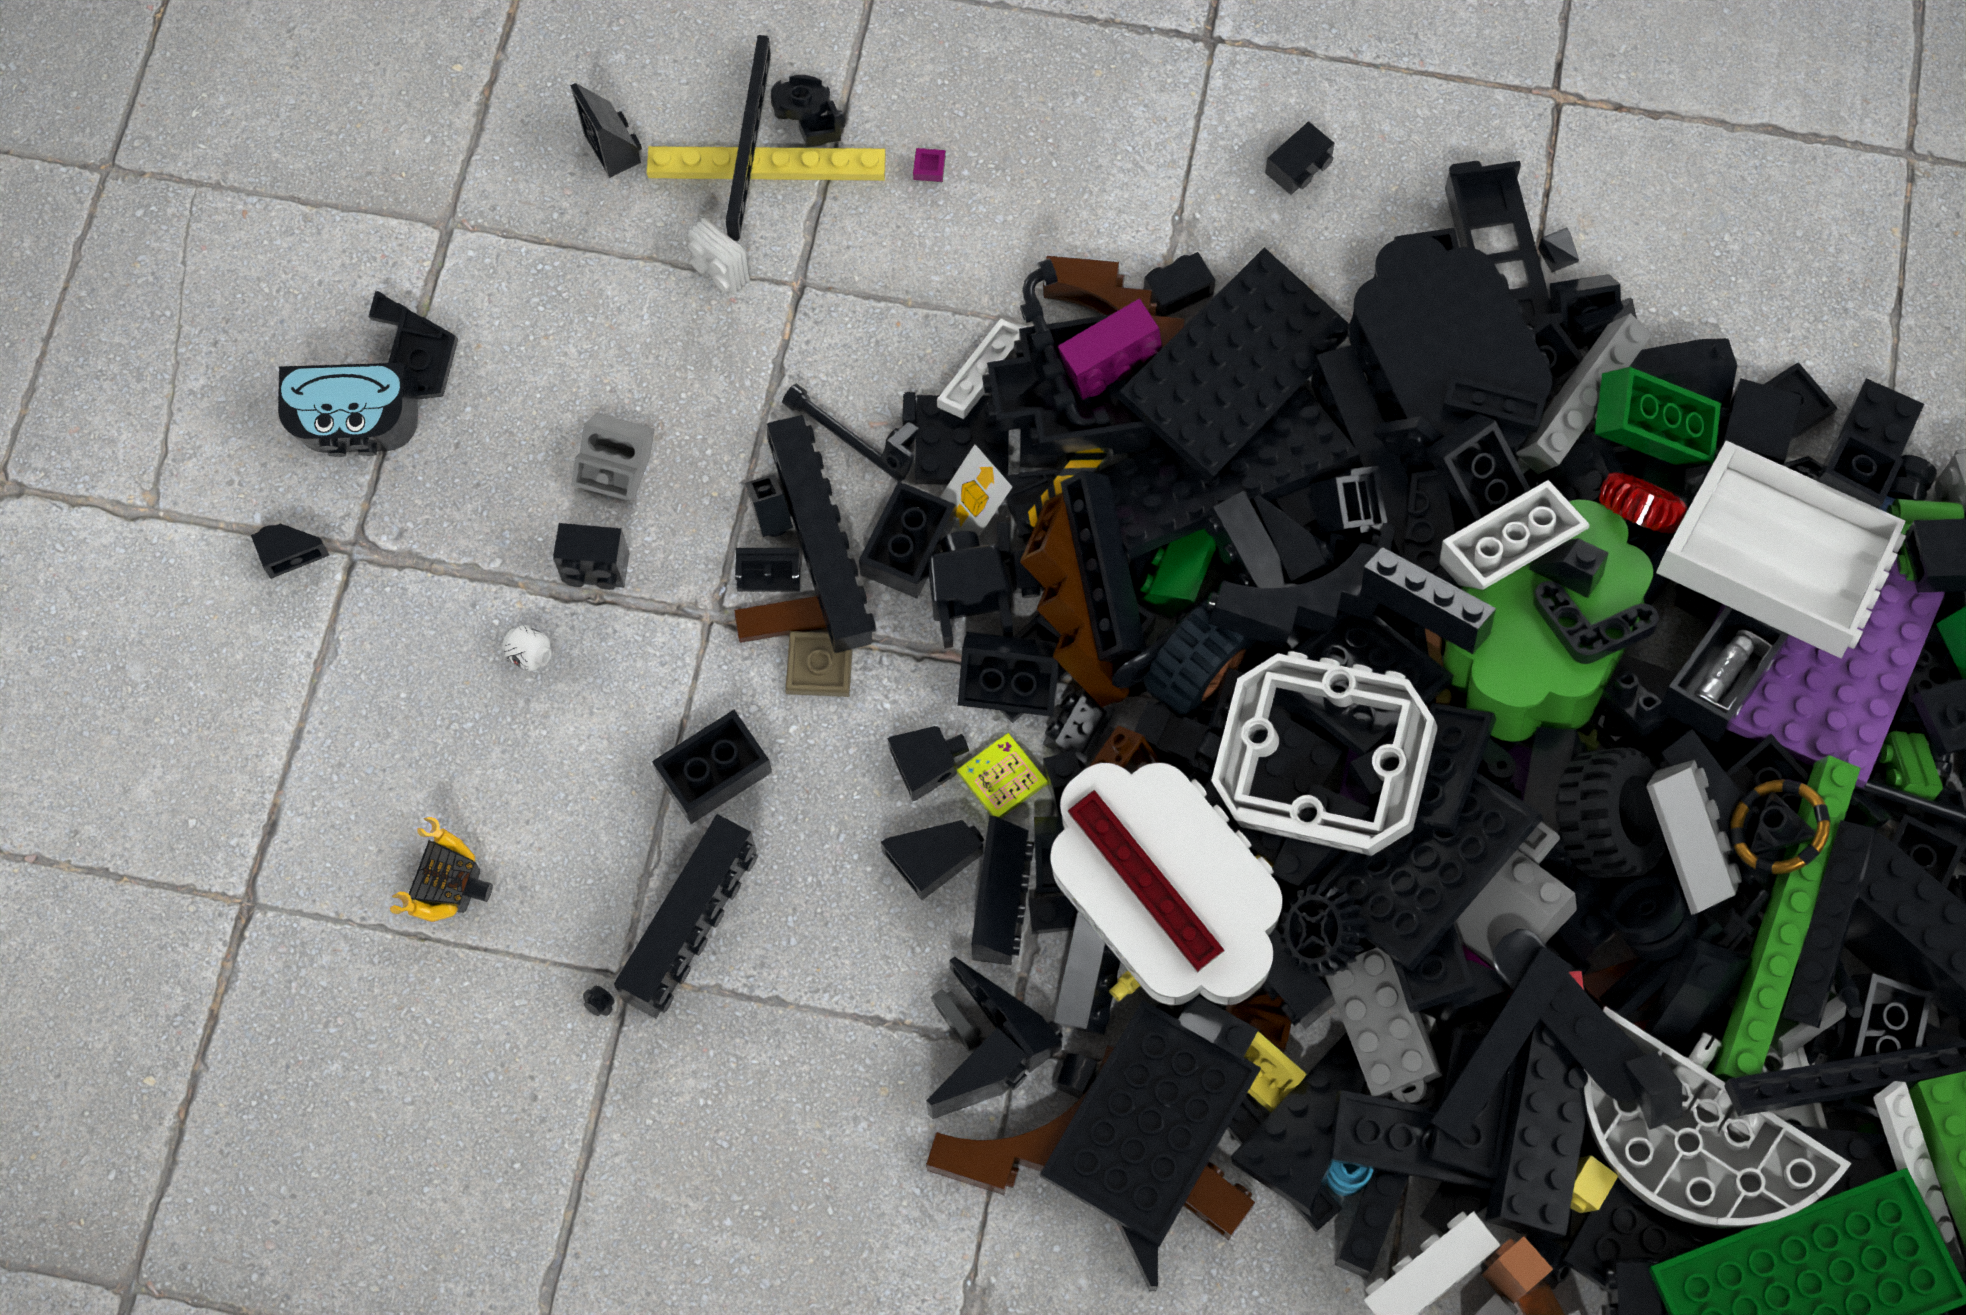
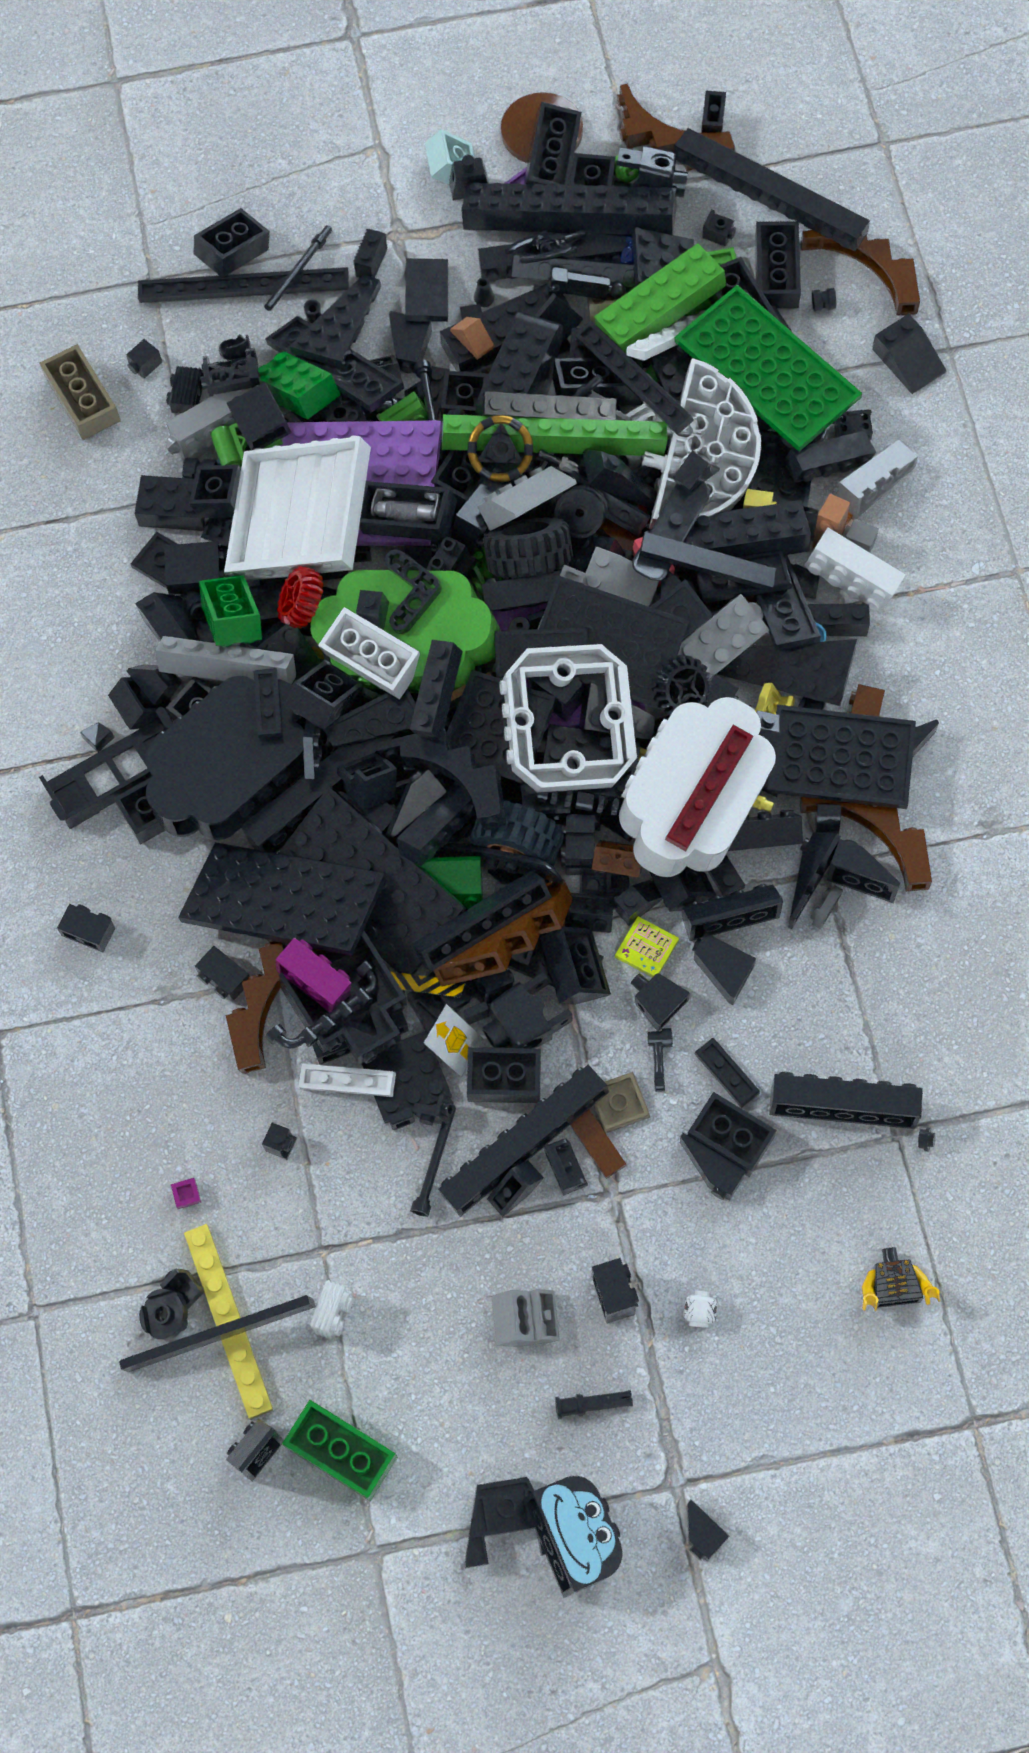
camera: 110 degrees left, 0 degrees up
(488, 480) = (581, 1404): none -> black pin
(564, 216) = (340, 1450): none -> green brick
(671, 729) = (717, 1172): none -> black slope
(797, 804) = (727, 1072): none -> black tile
(874, 741) = (659, 1040): none -> black brick
(944, 275) = (279, 1141): none -> black brick

